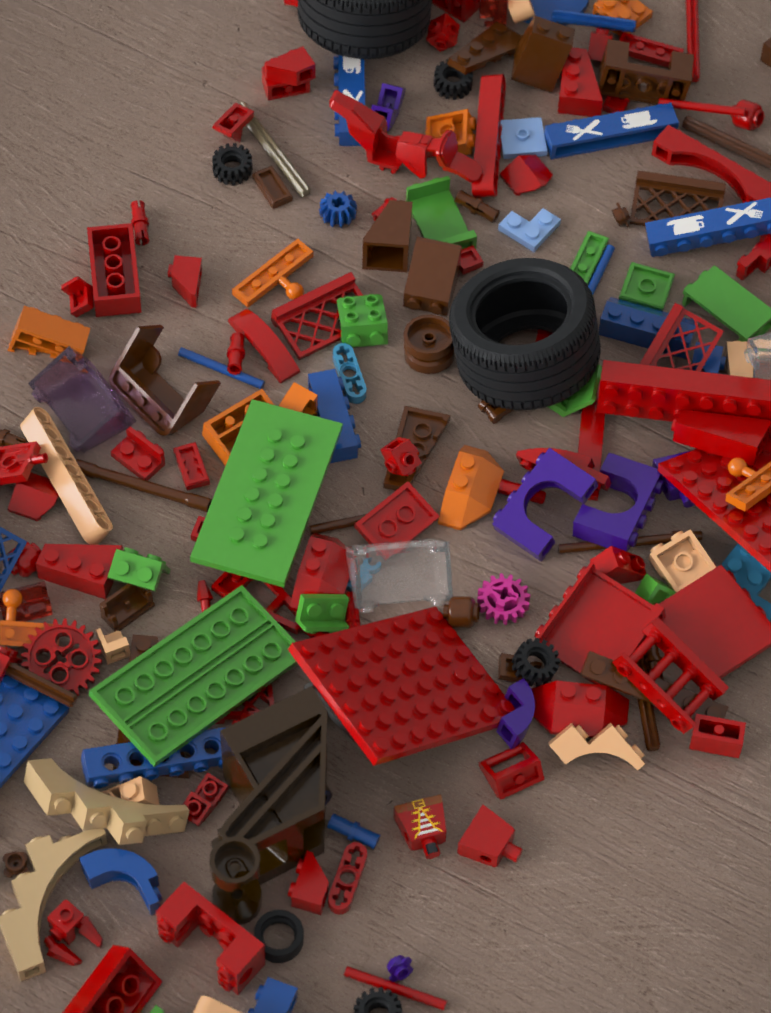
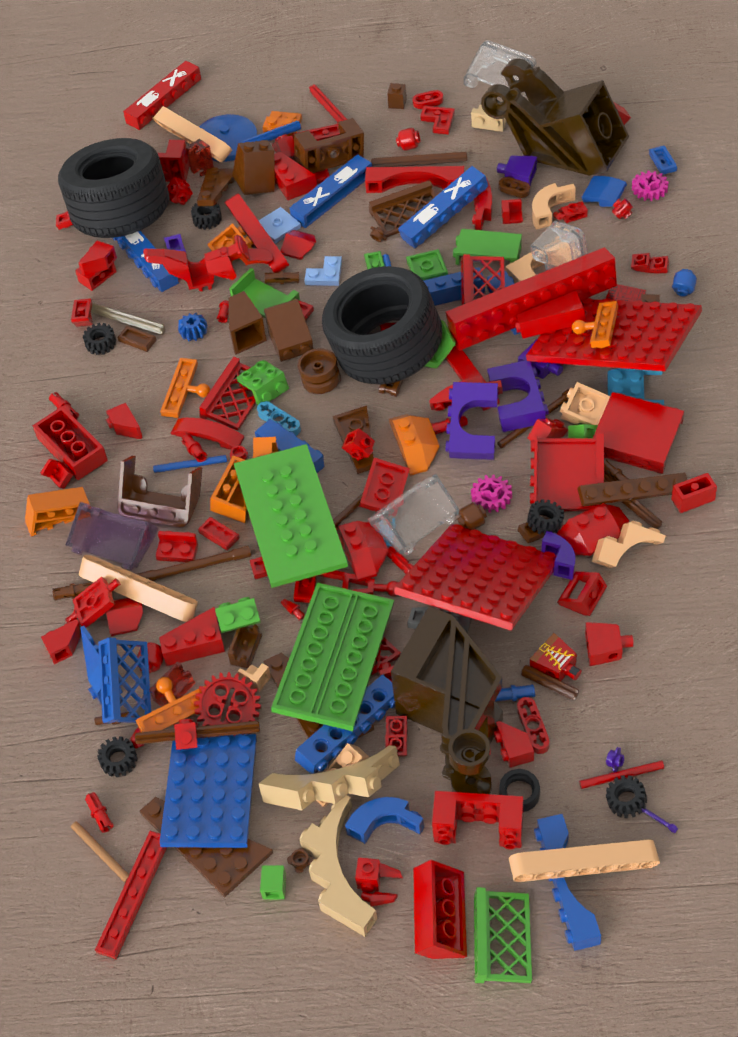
camera: 25 degrees left, 5 degrees down
(277, 388) = (239, 451): none -> red plate
(322, 612) = (383, 569): bright green bracket -> none
(400, 844) = (550, 682): none -> reddish brown axle
(690, 664) = (642, 457): red fence -> none
(704, 107) = (381, 146): red bar -> none

